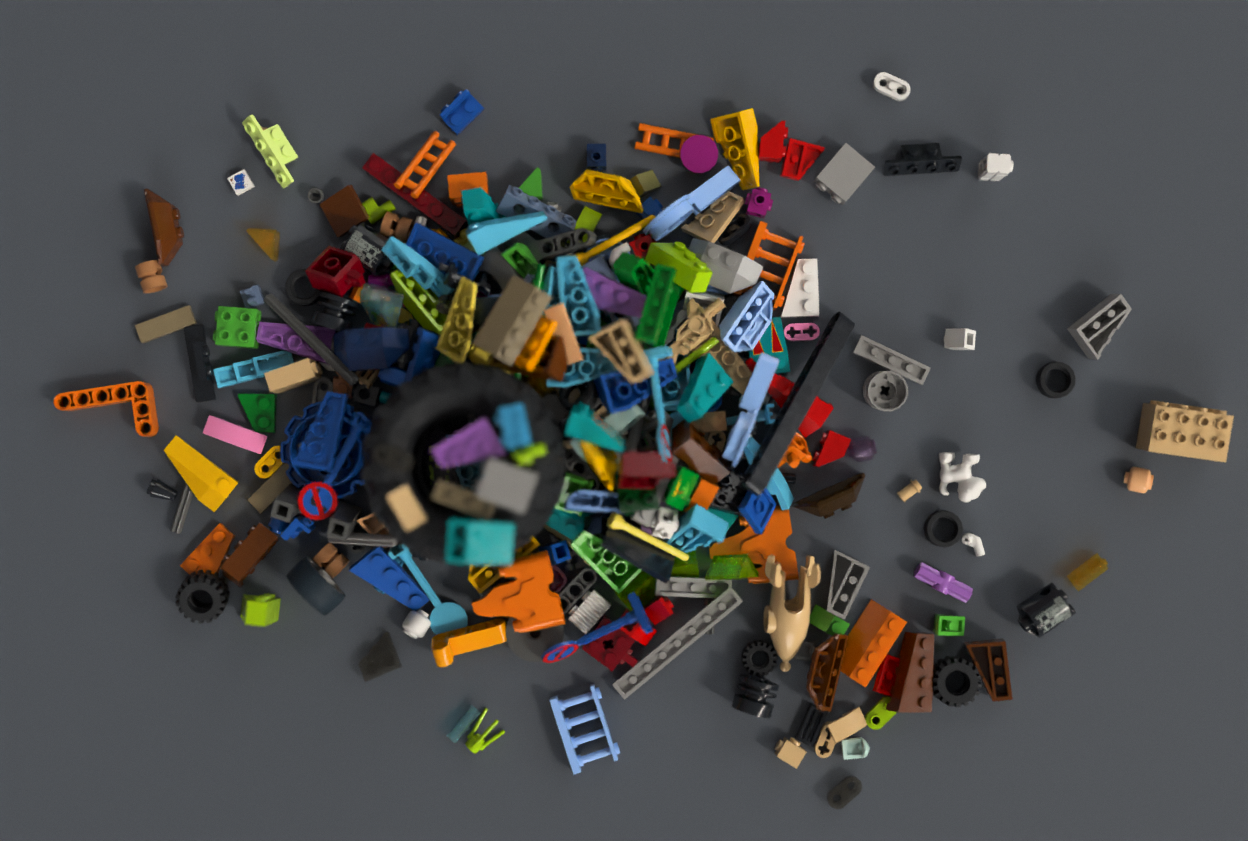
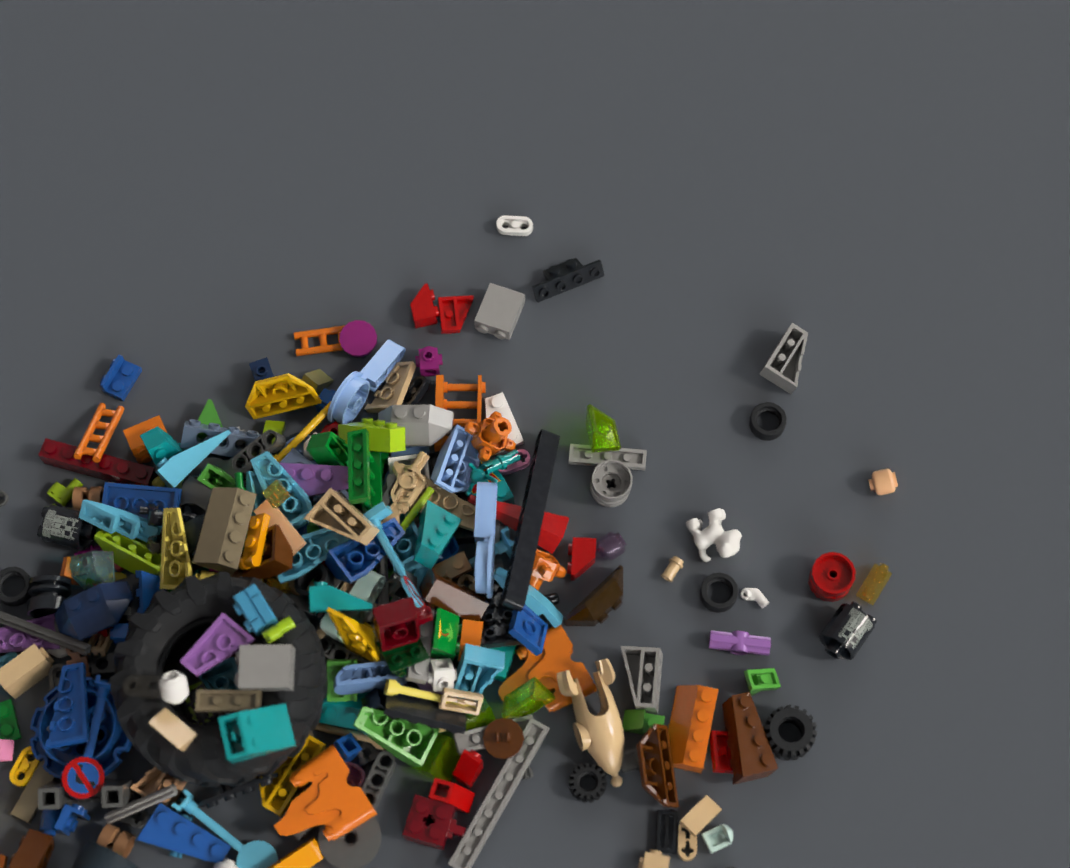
camera: 15 degrees left, 20 degrees down
(336, 271) = (39, 555): dark red hinge -> none
(344, 210) = (30, 501): reddish brown tile -> none
(418, 472) = (173, 687): none -> white head
(566, 649) = (385, 839): blue piece -> none
(570, 304) = (276, 494): none -> clear yellow tile
(589, 611) = (398, 798): white brick -> none
(675, 550) = (447, 696): none -> tan tile
(699, 596) = (503, 738): none -> reddish brown piece
(739, 140) = (391, 315): yellow wedge -> none
(755, 696) = (596, 814): black wheel -> none
(764, 341) = (478, 475): none -> teal plant
(790, 304) = (490, 435): none -> orange piece
(790, 332) = (500, 462): none -> teal pin
(879, 710) = (731, 792): lime plate -> none
(895, 334) = (601, 431): none -> clear neon green slope
(959, 339) = (663, 414): white brick -> none
(993, 667) = (819, 701): reddish brown wedge -> none
(994, 167) = (634, 258): white brick -> none
(1058, 545) = (829, 566): none -> red wheel
(1184, 431) = (904, 421): tan brick -> none

